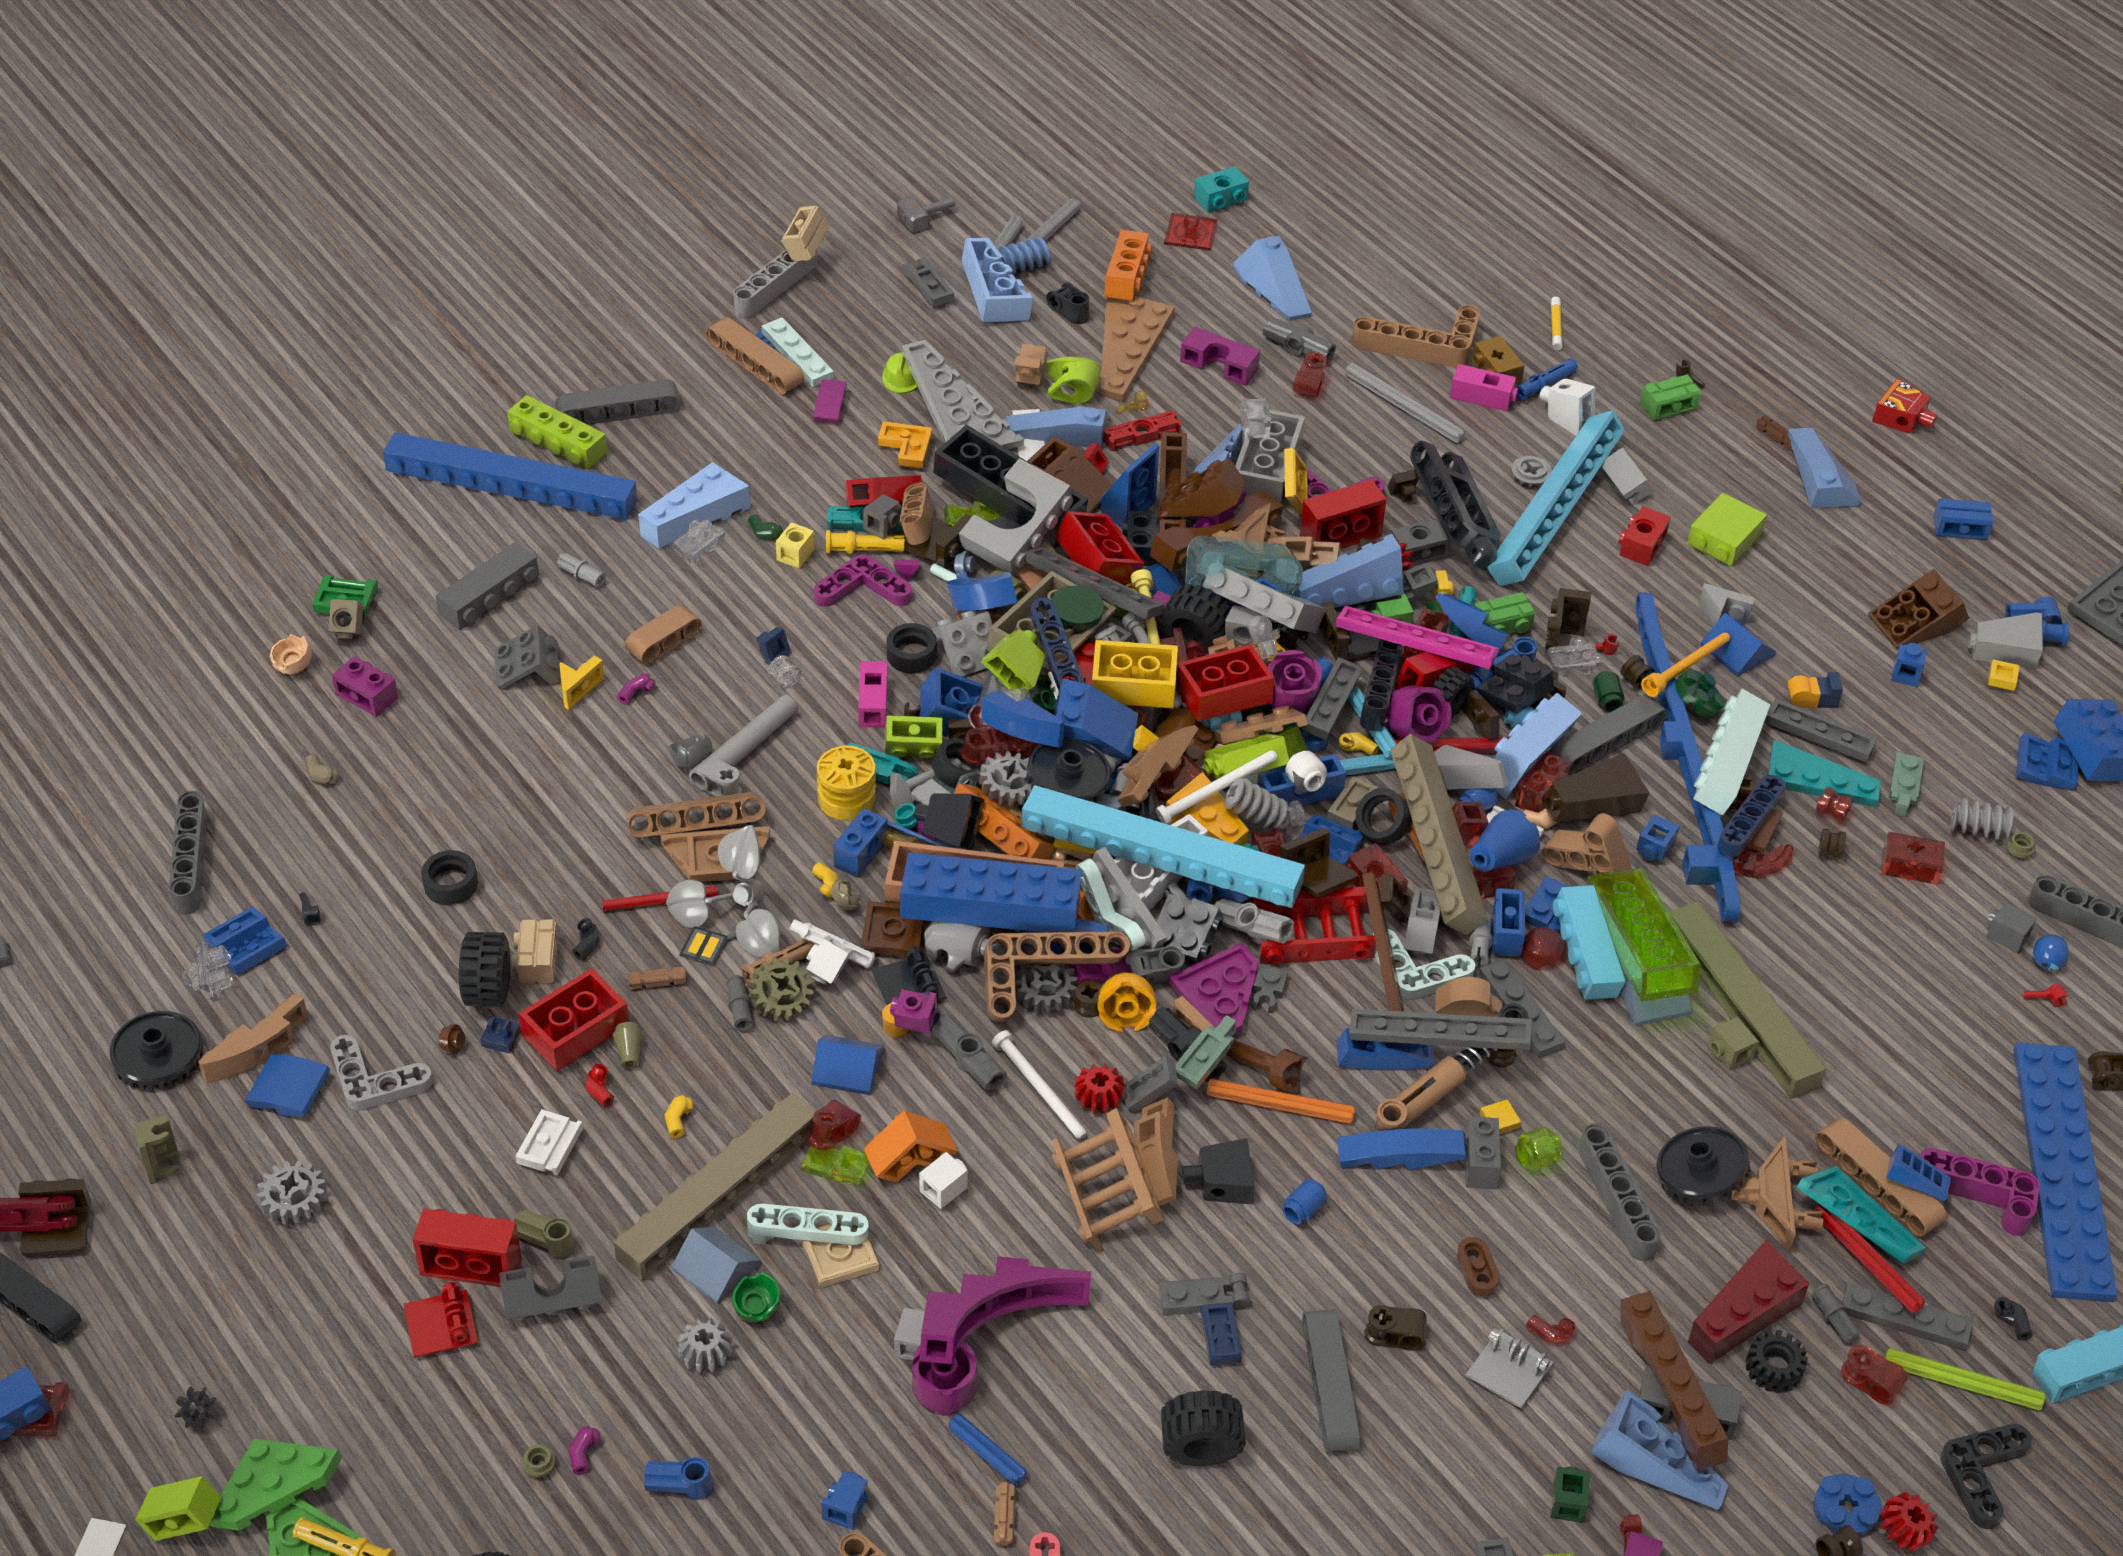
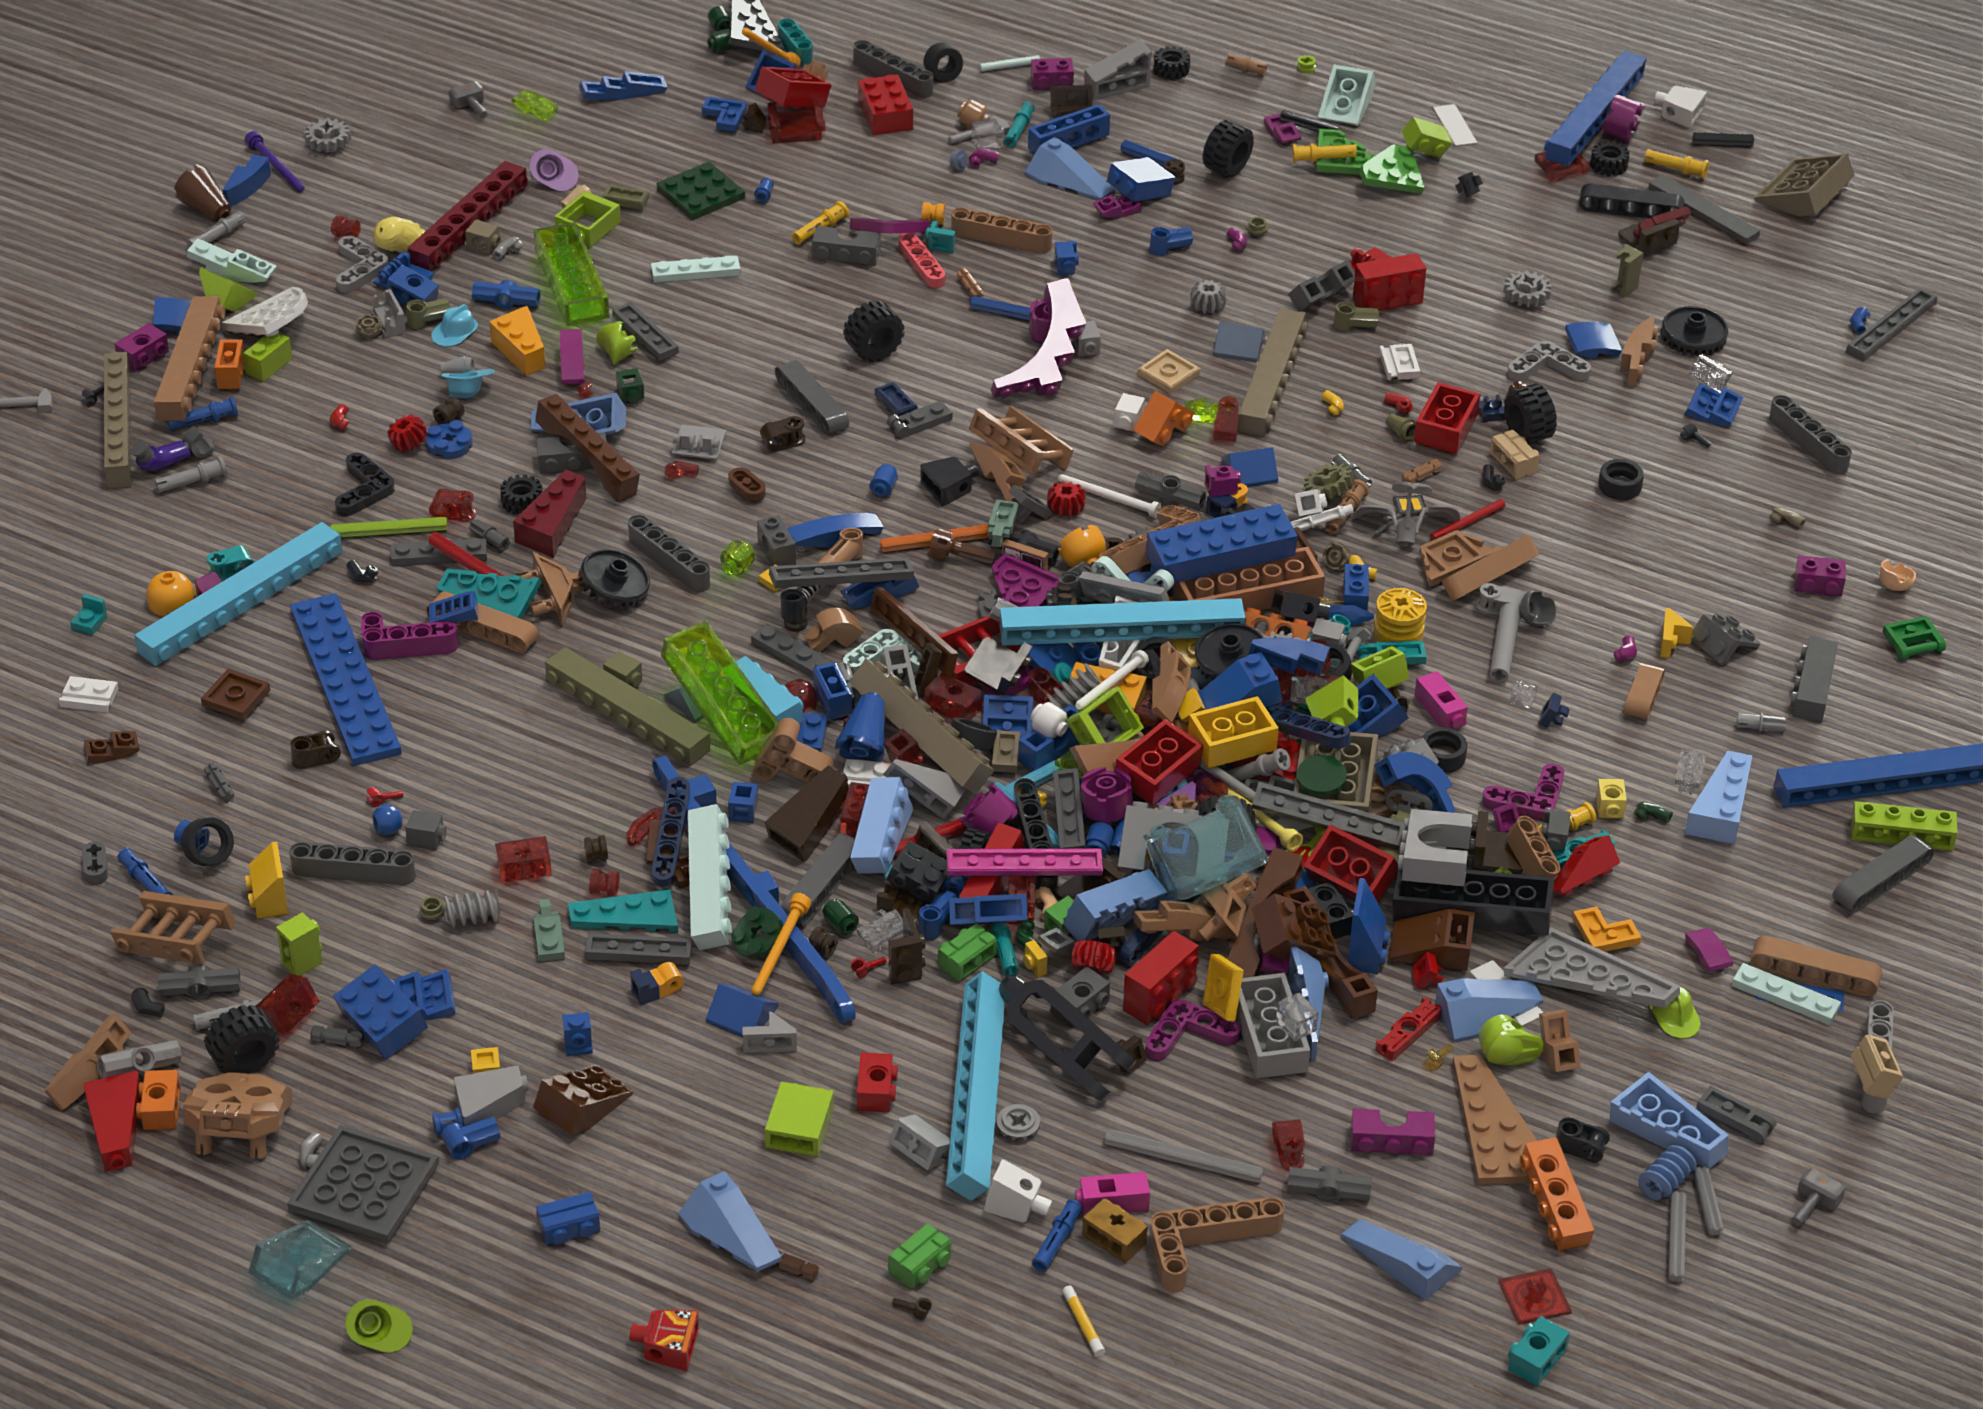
camera: 155 degrees right, 5 degrees down
(337, 610) = (1887, 610): dark tan brick -> none
(756, 1298) = (1196, 325): green hair -> none
(762, 1225) = (1222, 360): light aqua beam -> none
(1262, 637) = (1147, 790): clear hips -> none

